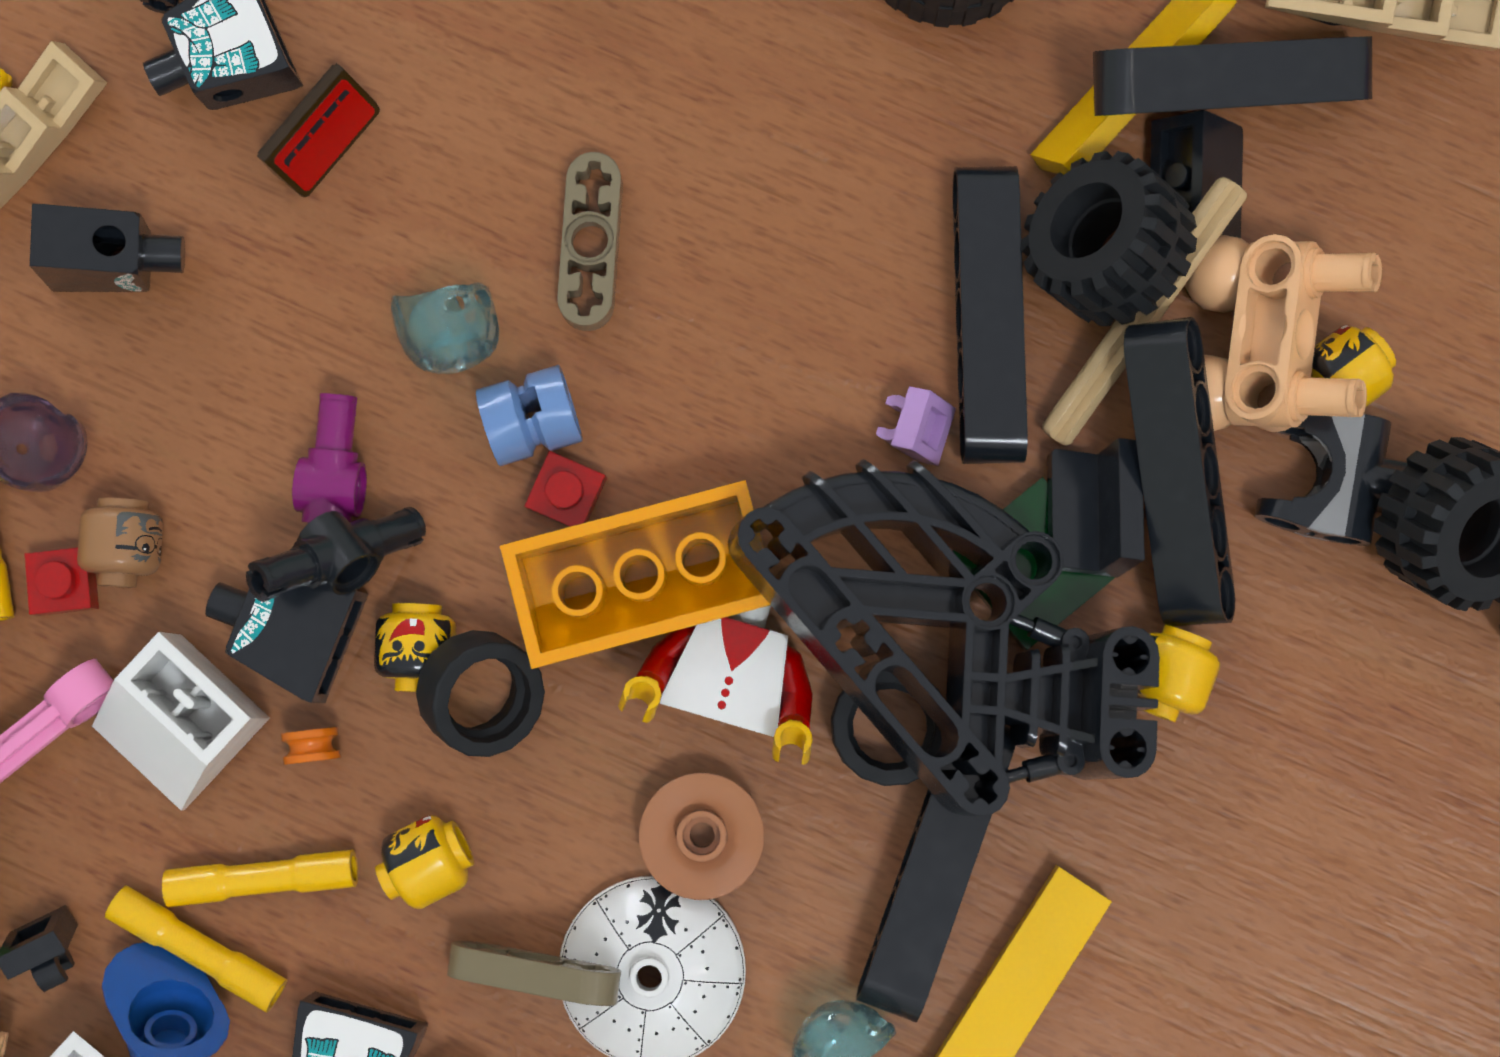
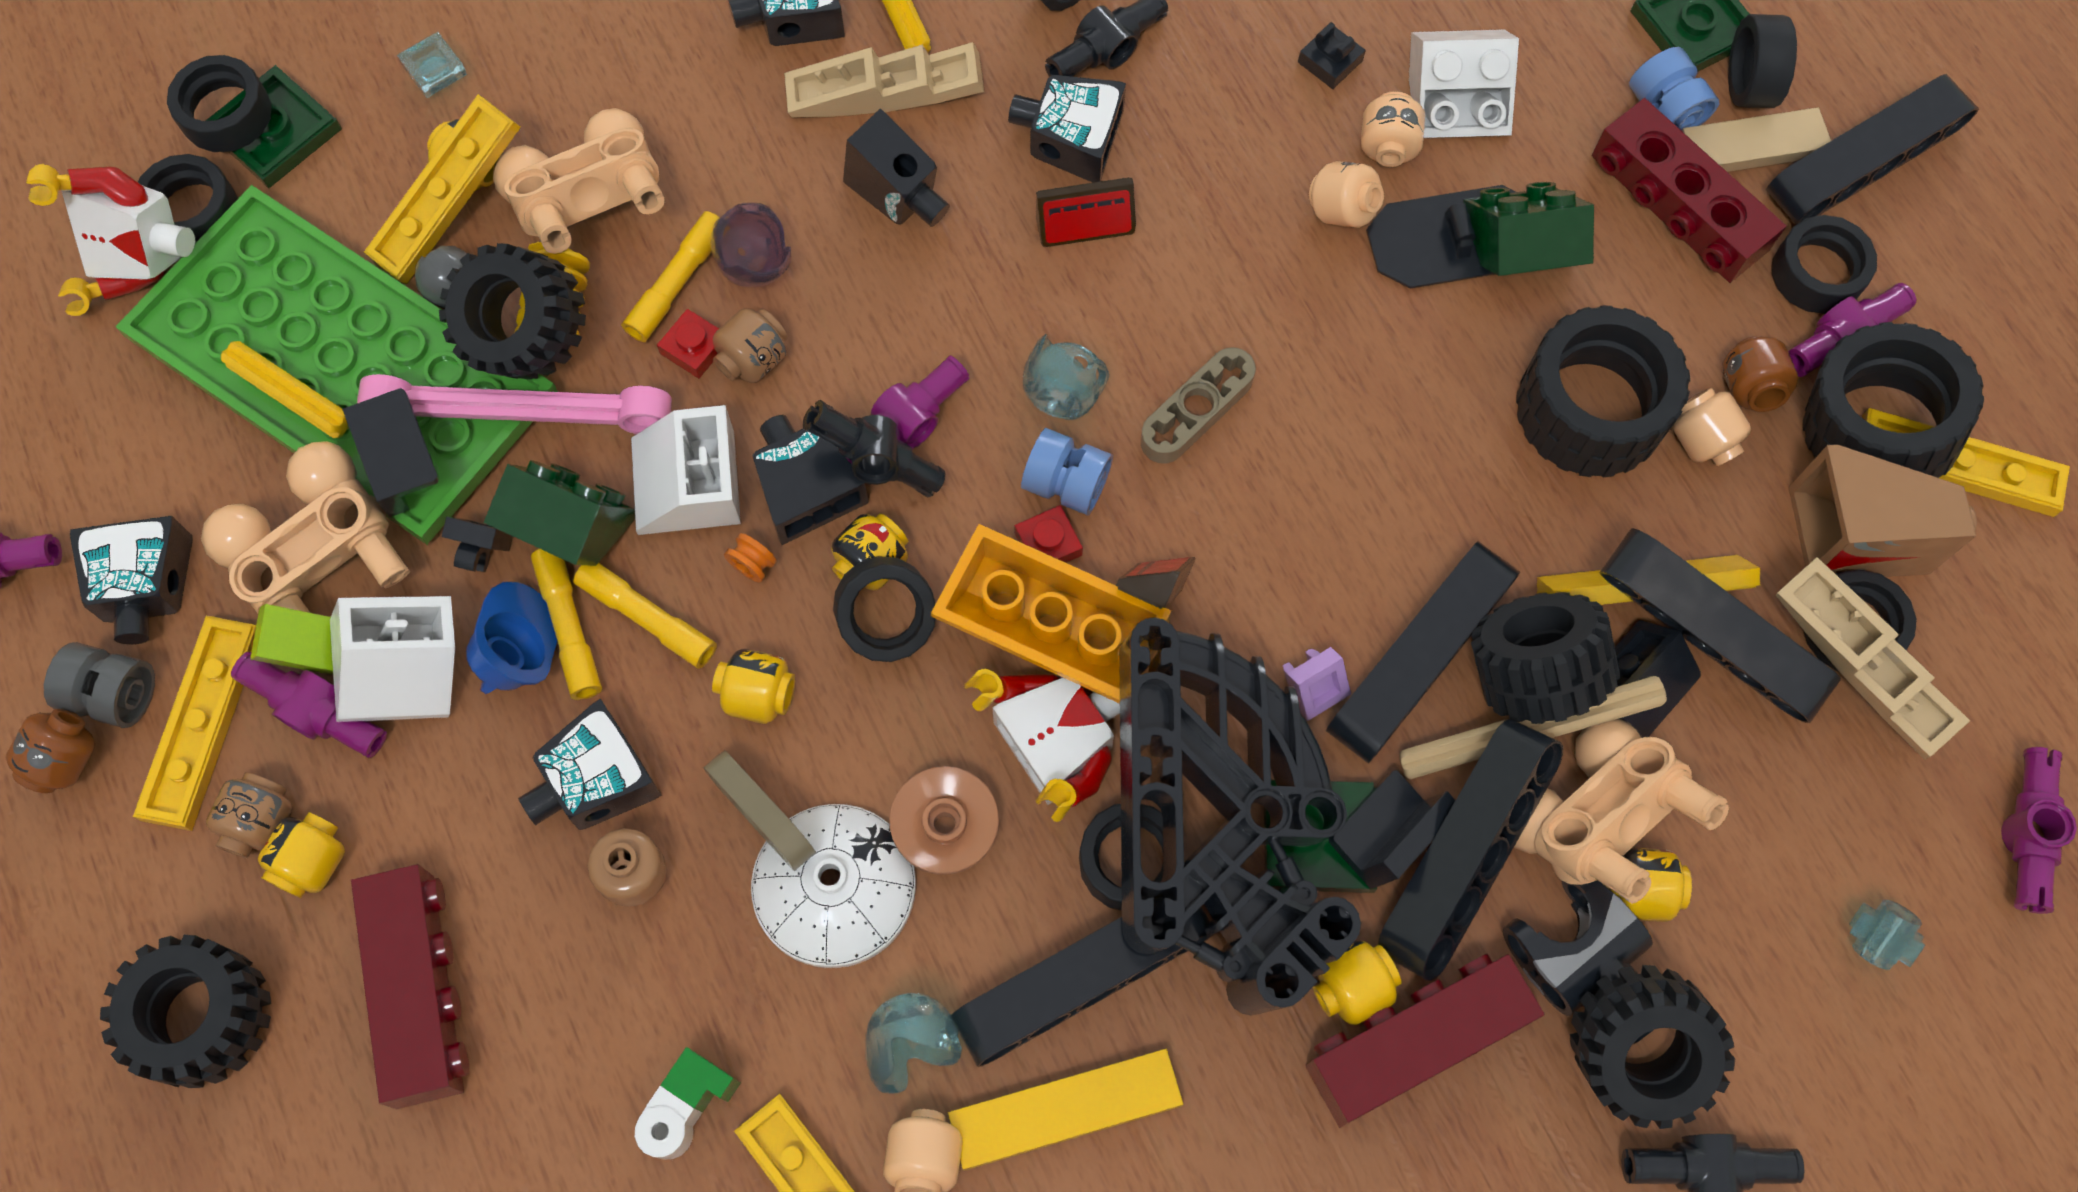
camera: 35 degrees right, 15 degrees down
(97, 862) = (559, 512): none -> dark green slope
(702, 456) = (1156, 580): none -> dark brown slope
(1266, 672) = (1423, 1039): none -> dark red brick

